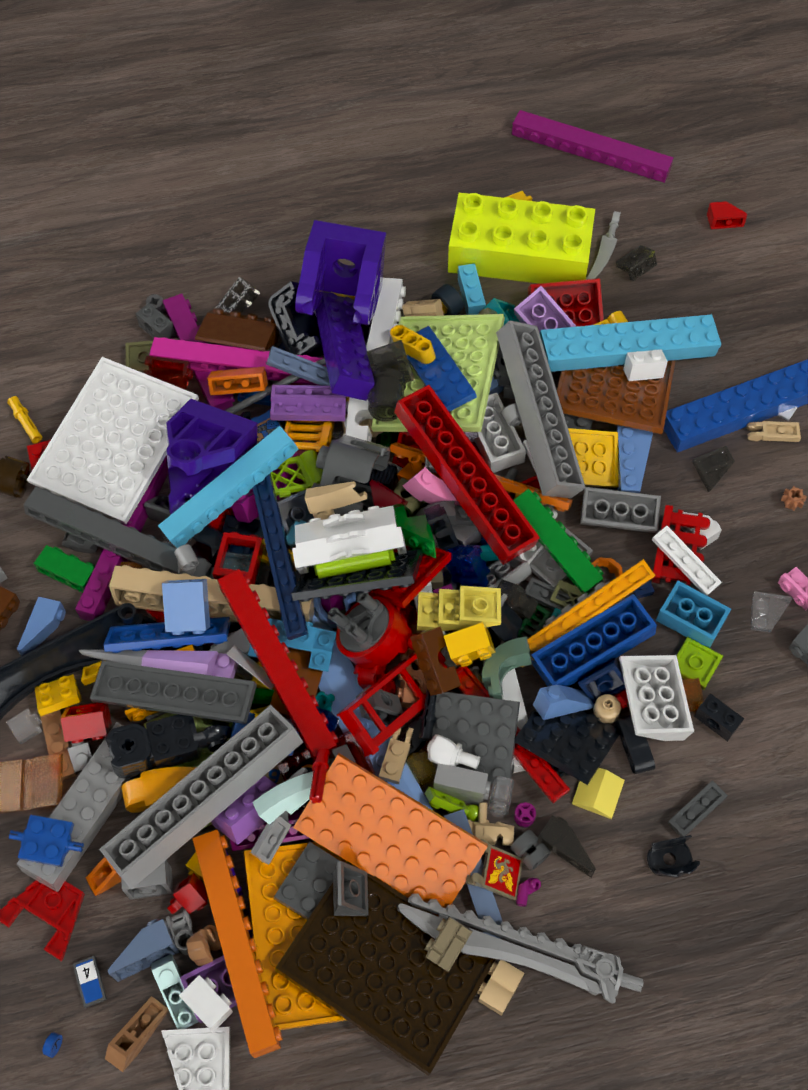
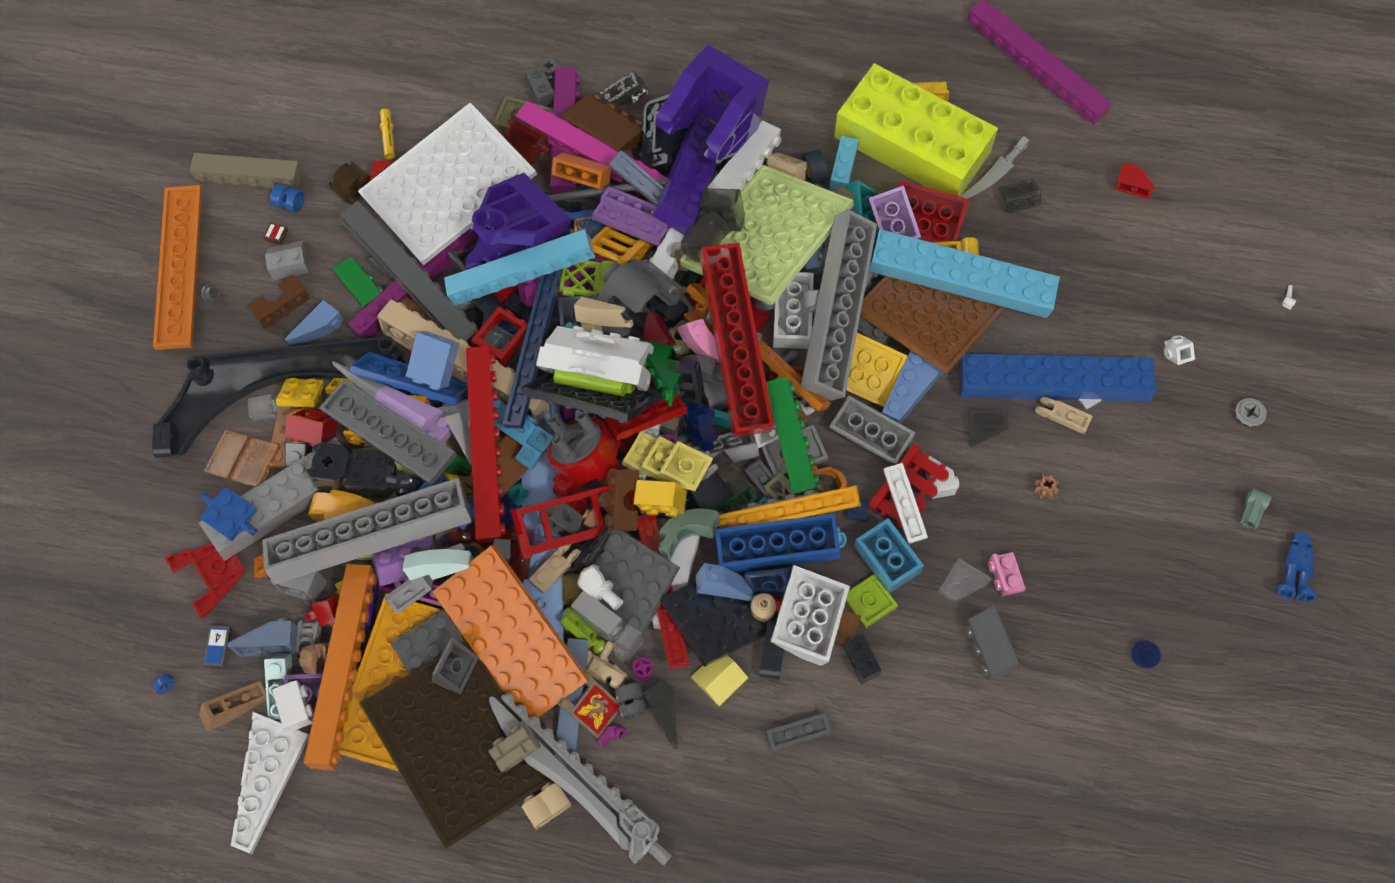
camera: 25 degrees right, 5 degrees up
(186, 559) = (452, 319): light grey piece -> none
(319, 769) = (473, 550): red axle -> none
(414, 344) = (752, 197): yellow beam -> none
(443, 375) = (763, 230): blue plate -> none
(645, 365) = (967, 301): white brick -> none
(684, 863) = (745, 752): black piece -> none

